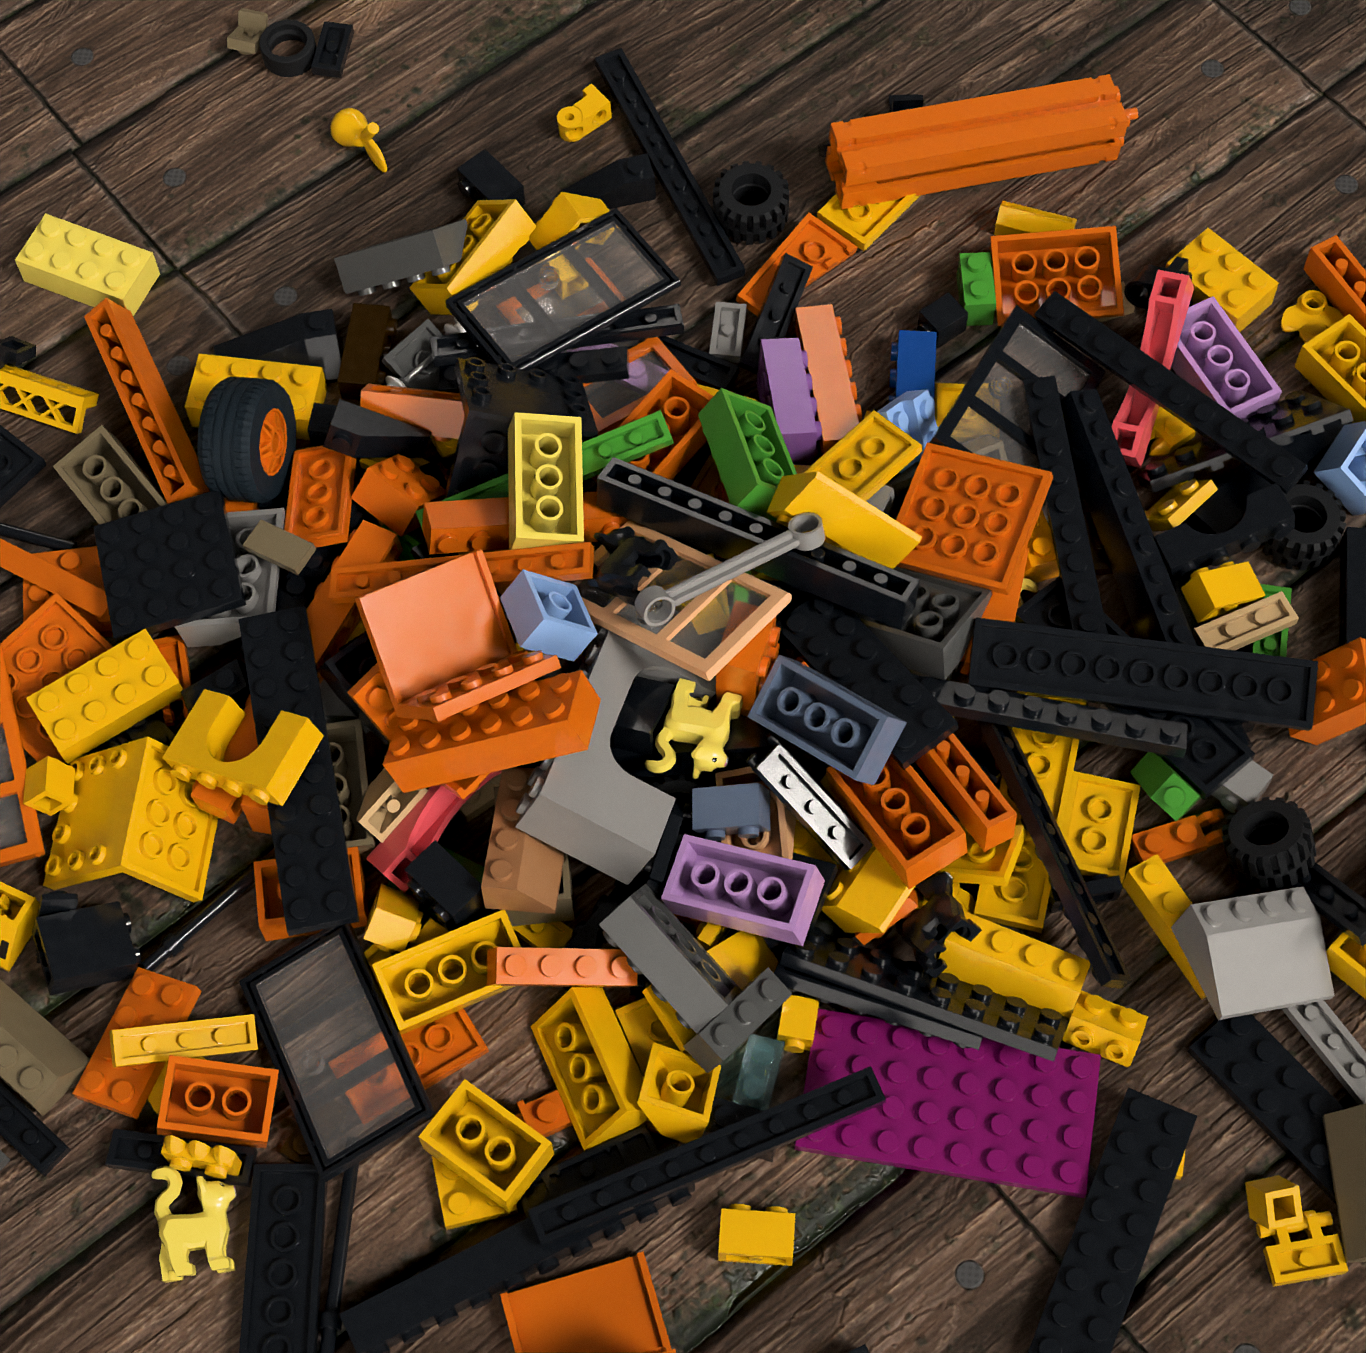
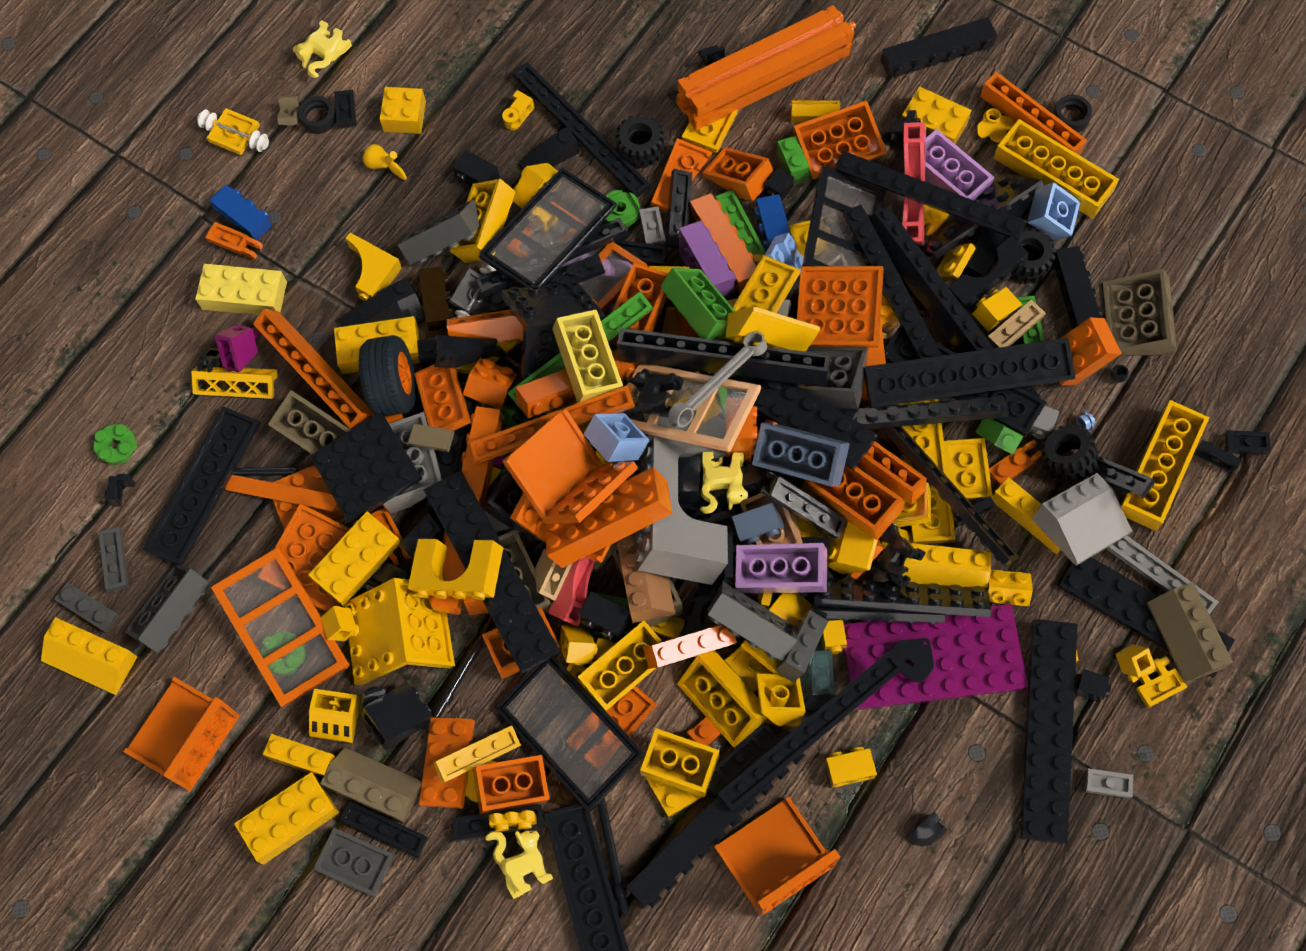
camera: 15 degrees left, 5 degrees up
(50, 343) = (237, 346): none -> magenta torso
(102, 193) = (232, 240): none -> orange hinge
(128, 157) = (241, 212): none -> blue brick
(159, 41) = (233, 131): none -> yellow plate
(295, 286) = (377, 267): none -> yellow arch
(414, 72) = (402, 110): none -> yellow brick
(699, 283) = (631, 205): none -> bright green plate
(864, 360) = (738, 218): none -> bright green plate
(888, 287) = (739, 172): none -> orange slope
(920, 1087) = (916, 653): none -> black piece
(1192, 1223) = (1092, 686): none -> black brick
(1260, 180) = (938, 47): none -> black brick
(1314, 803) = (1085, 420): none -> light blue plate

